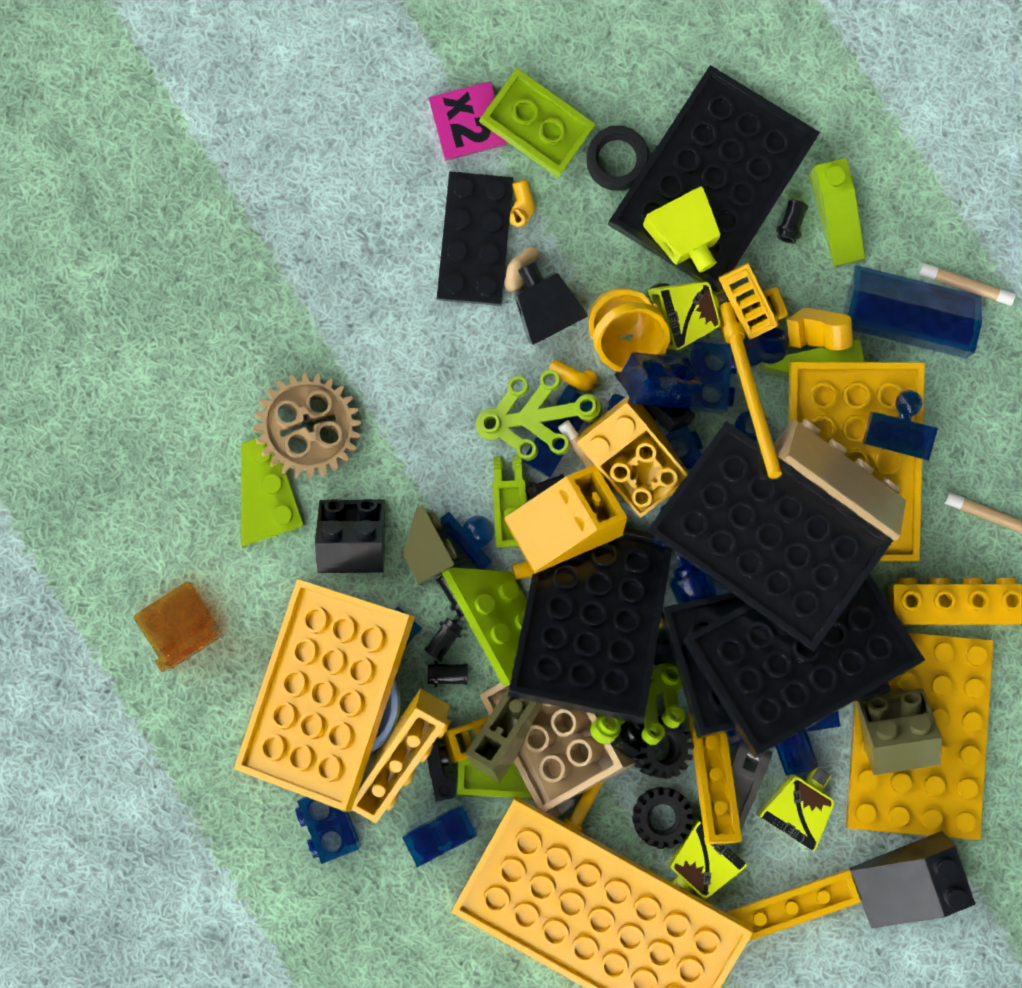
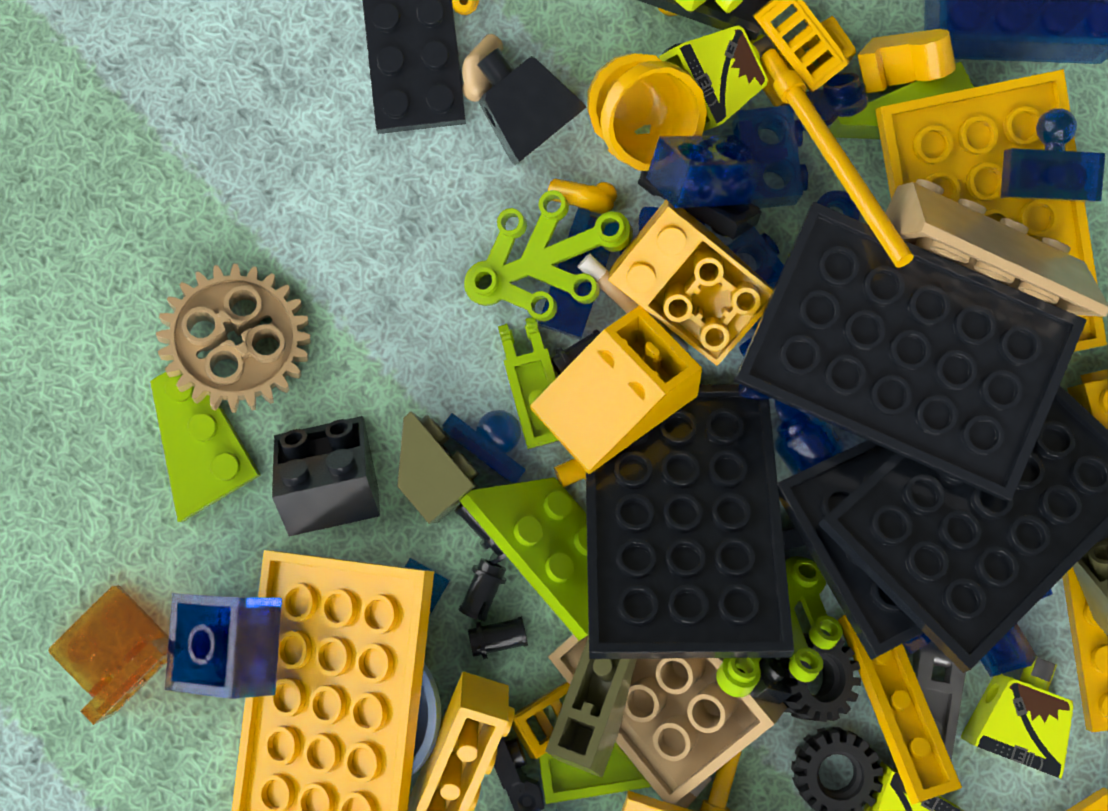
camera: 10 degrees left, 0 degrees up
(259, 636) = (223, 645): none -> clear blue brick

